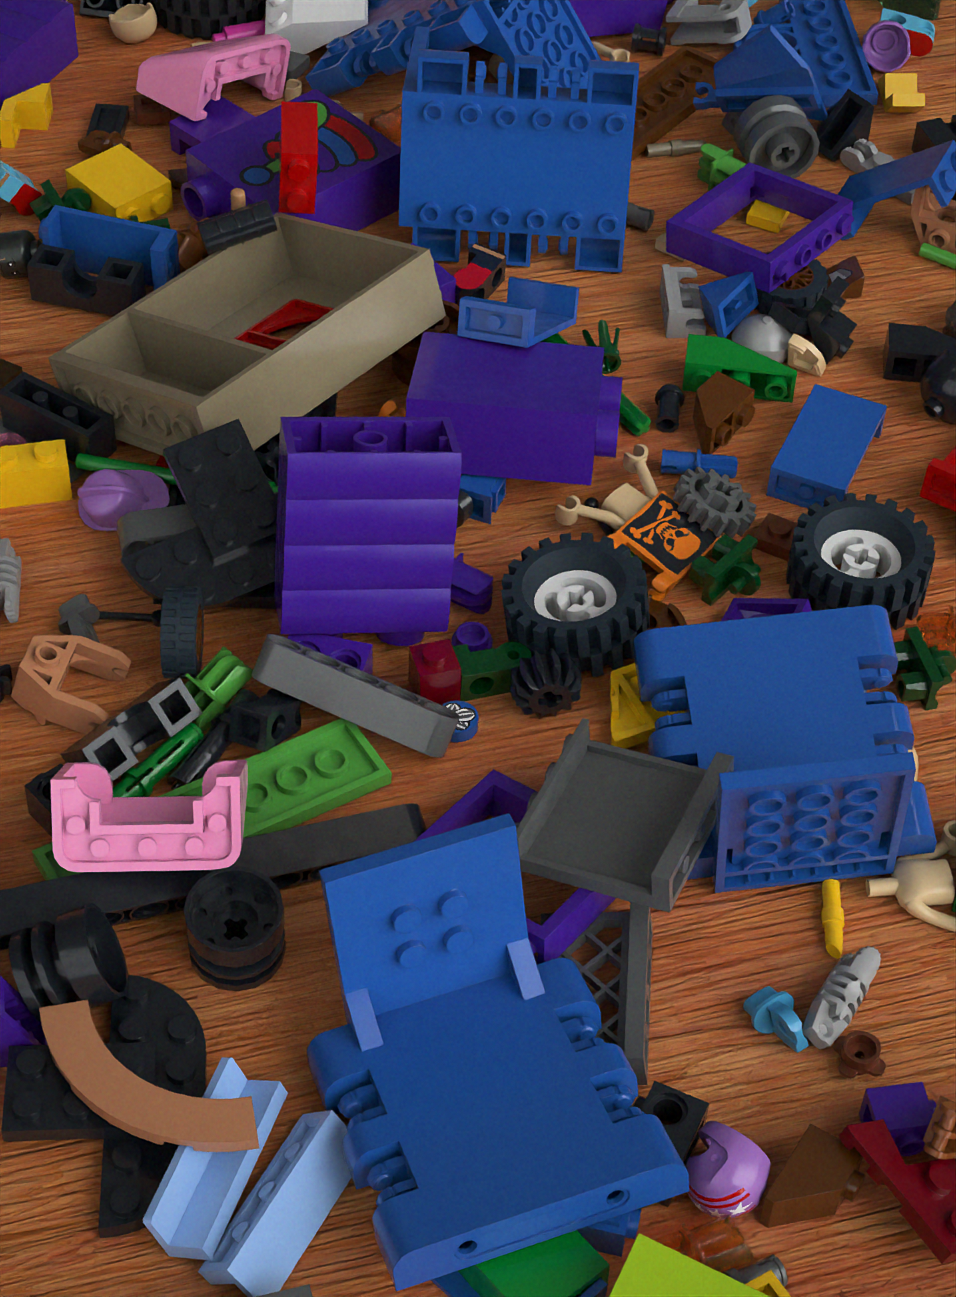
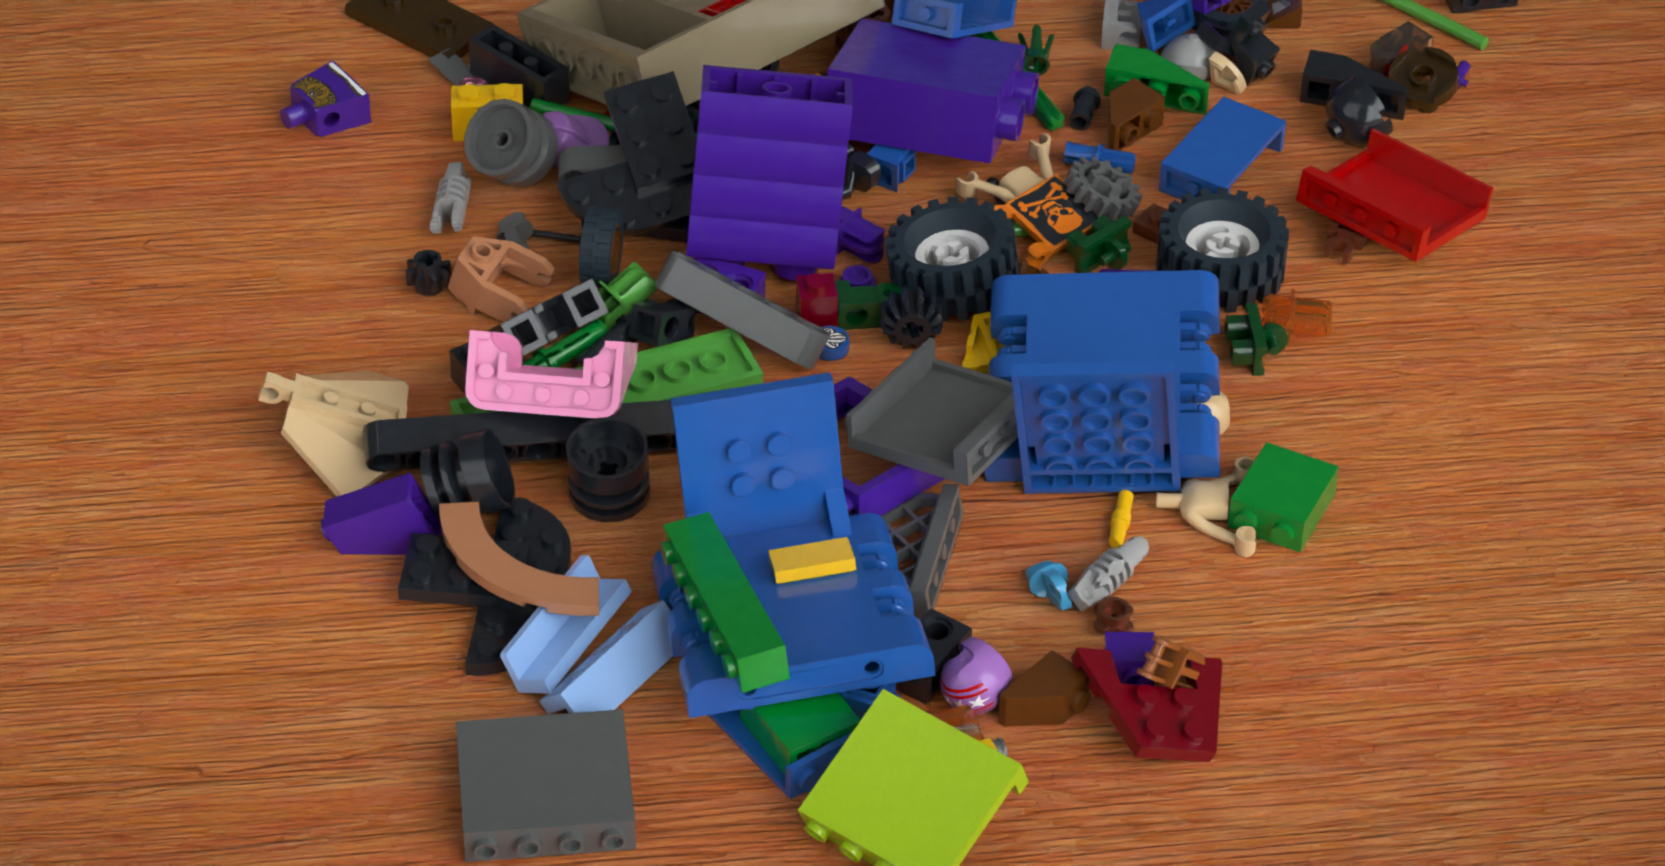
camera: 10 degrees right, 5 degrees down
(61, 512) = (510, 143): none -> dark grey wheel
(423, 1132) = (724, 602): none -> green brick
(508, 1042) = (812, 560): none -> yellow tile

